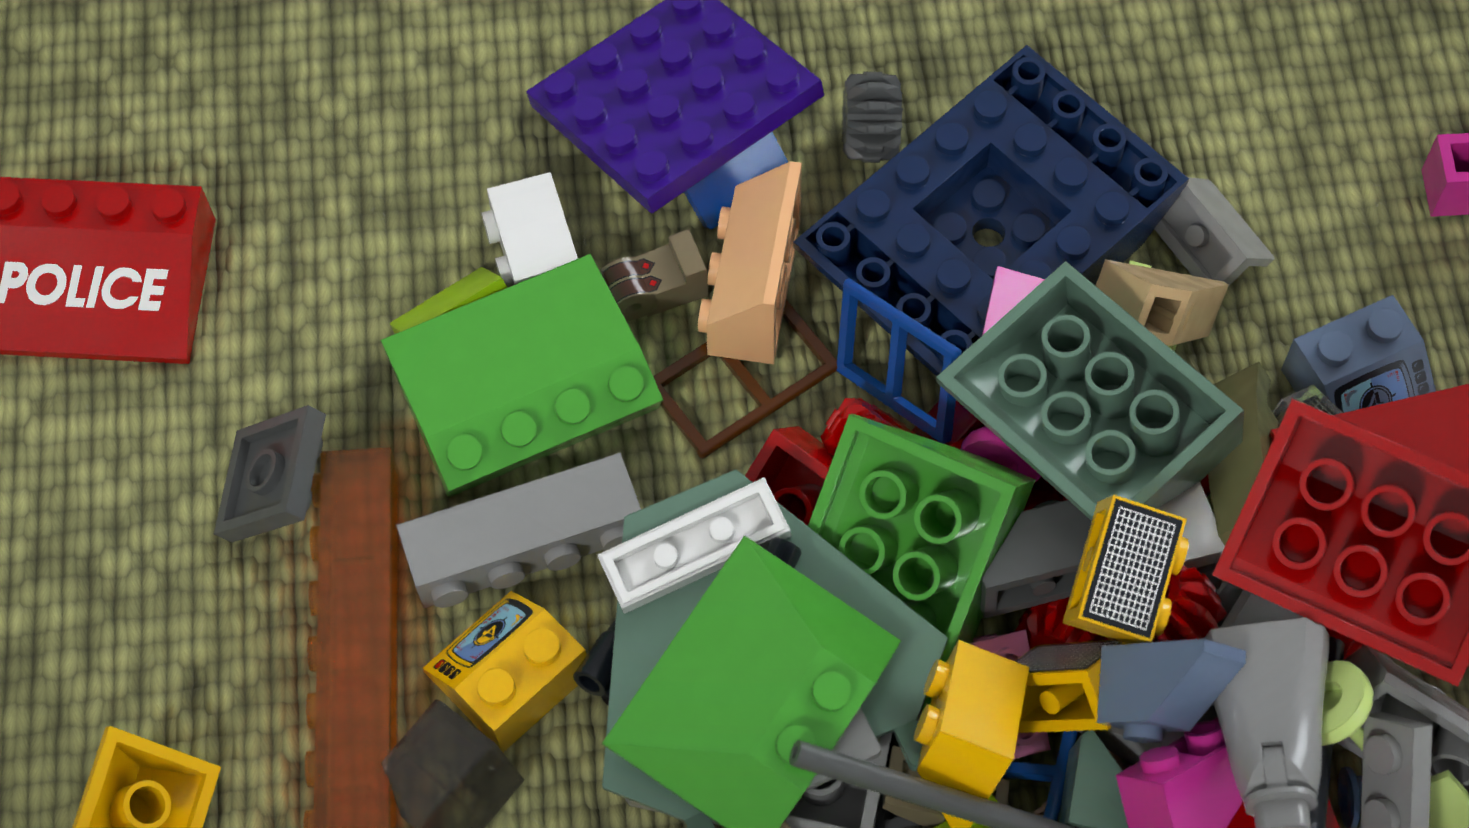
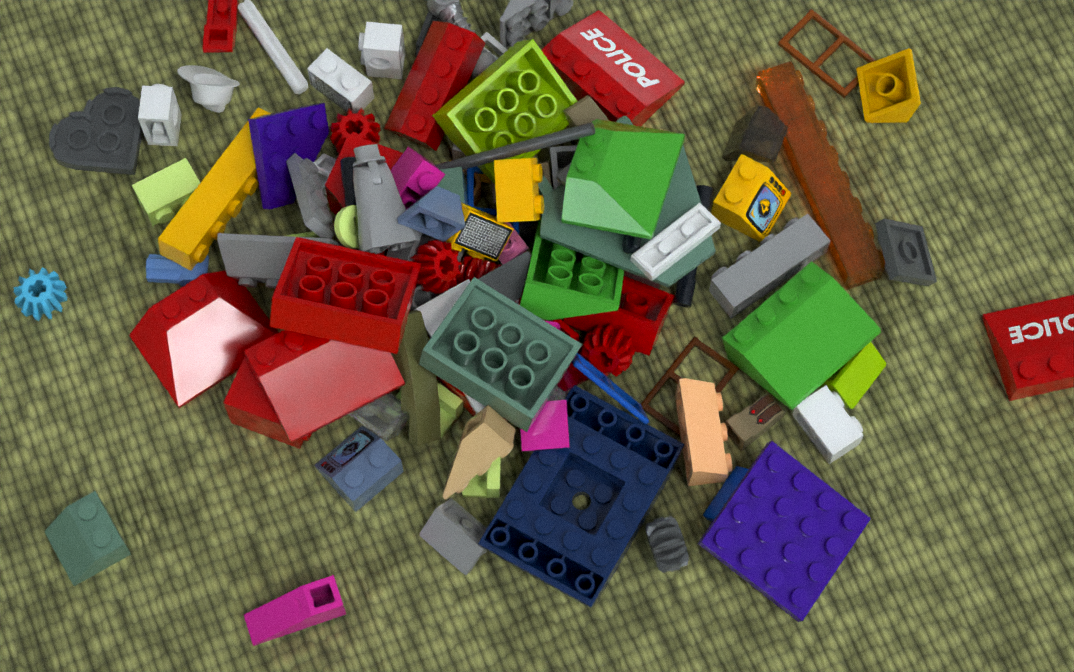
camera: 160 degrees right, 5 degrees up
(1127, 571) = (462, 252): brick -> none

